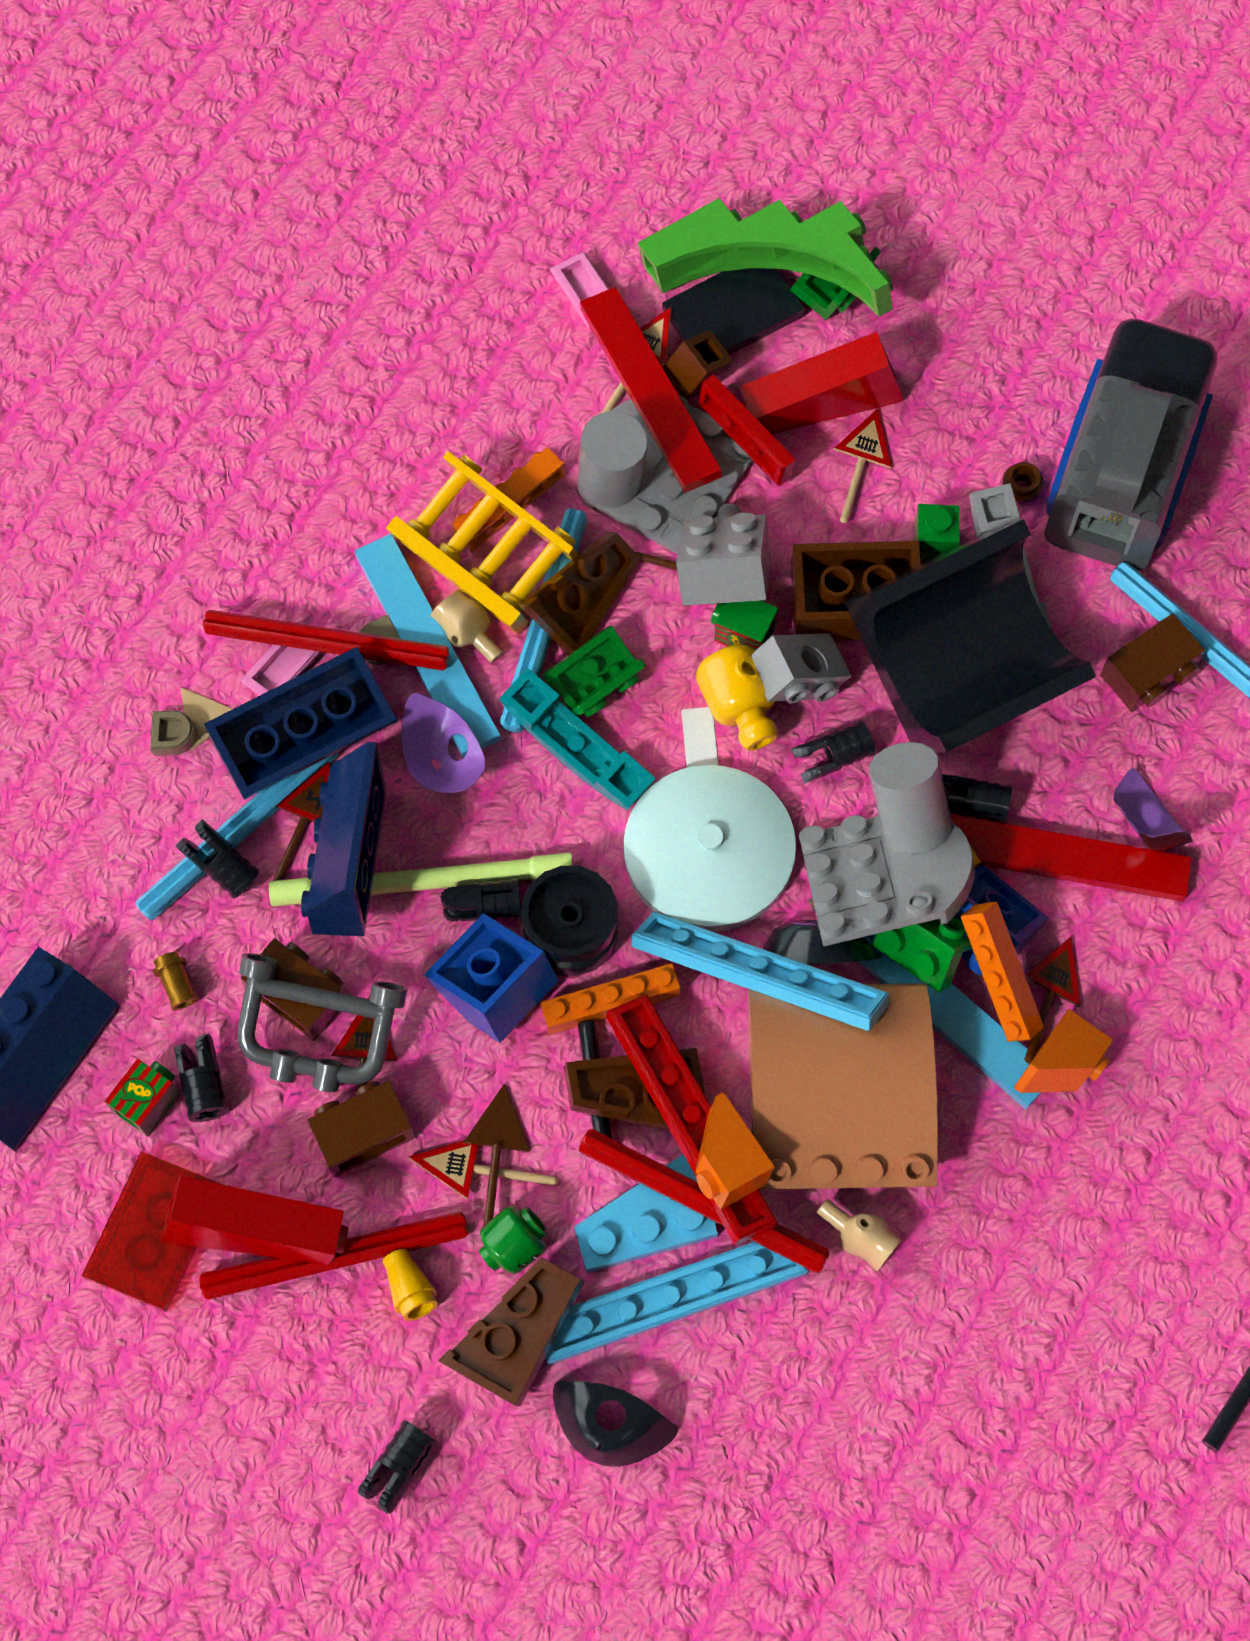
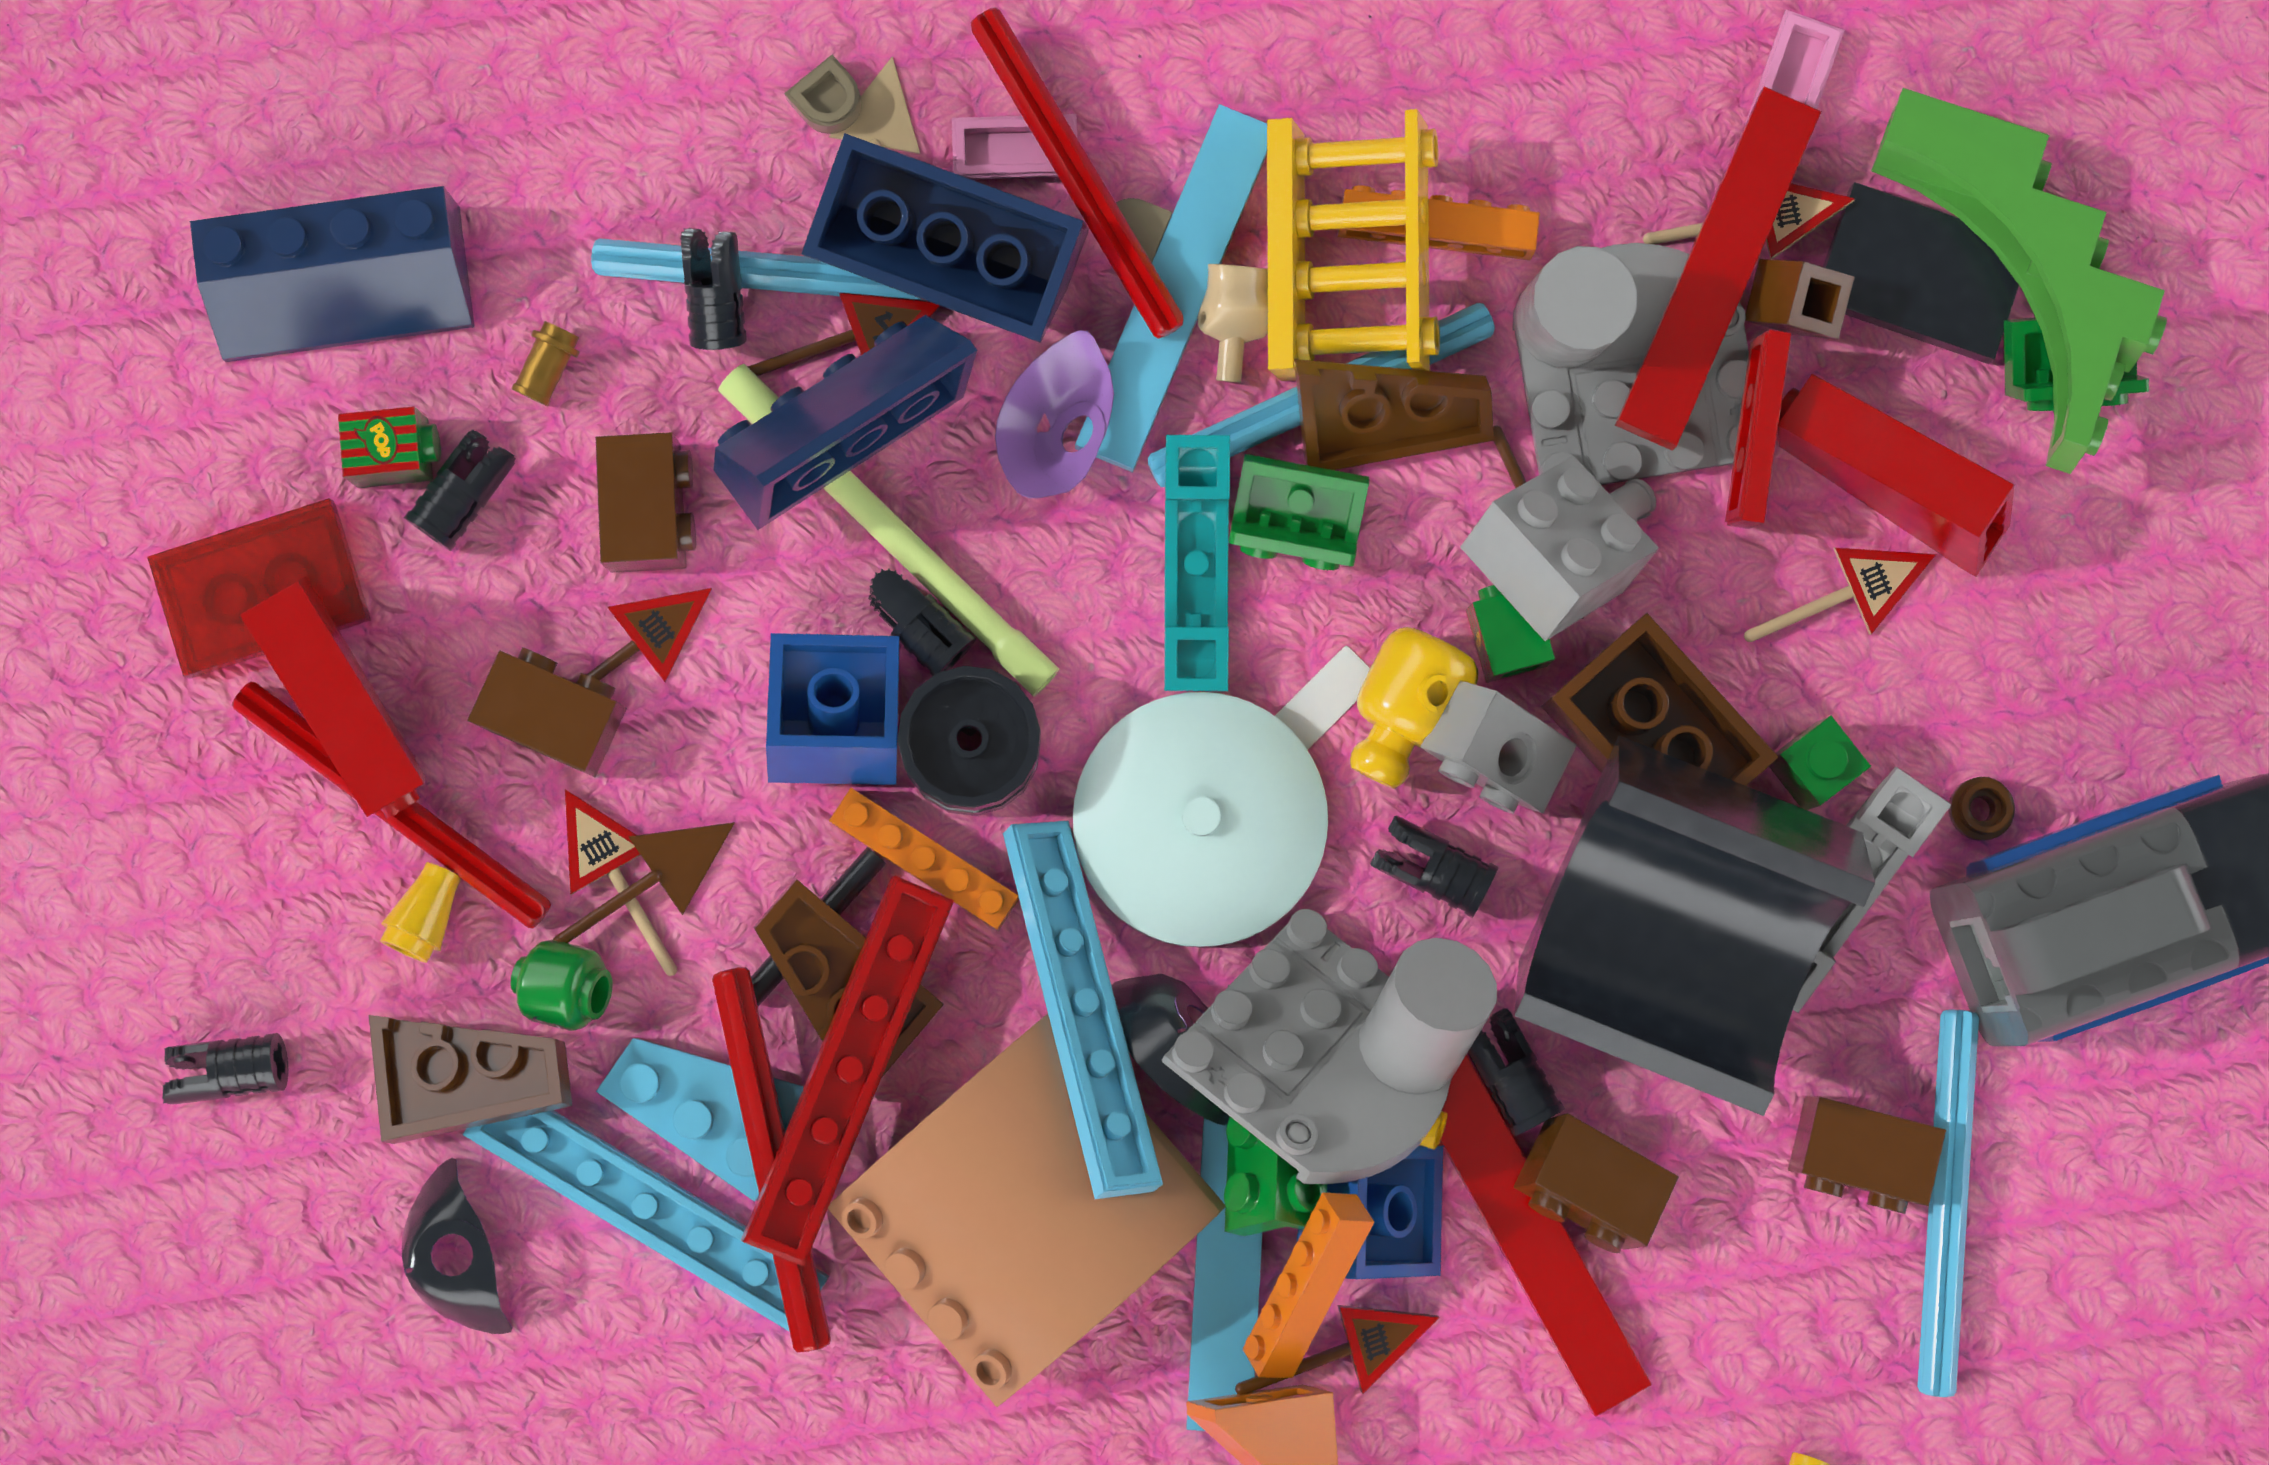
camera: 45 degrees right, 15 degrees up
(286, 1063) = (698, 619): dark grey bar -> none
(730, 1157) = (823, 1156): orange slope -> none
(862, 1234) = (880, 1364): tan piece -> none
(1063, 798) = (1595, 1184): none -> reddish brown piece
(1148, 814) = (1662, 1297): medium lavender piece -> none

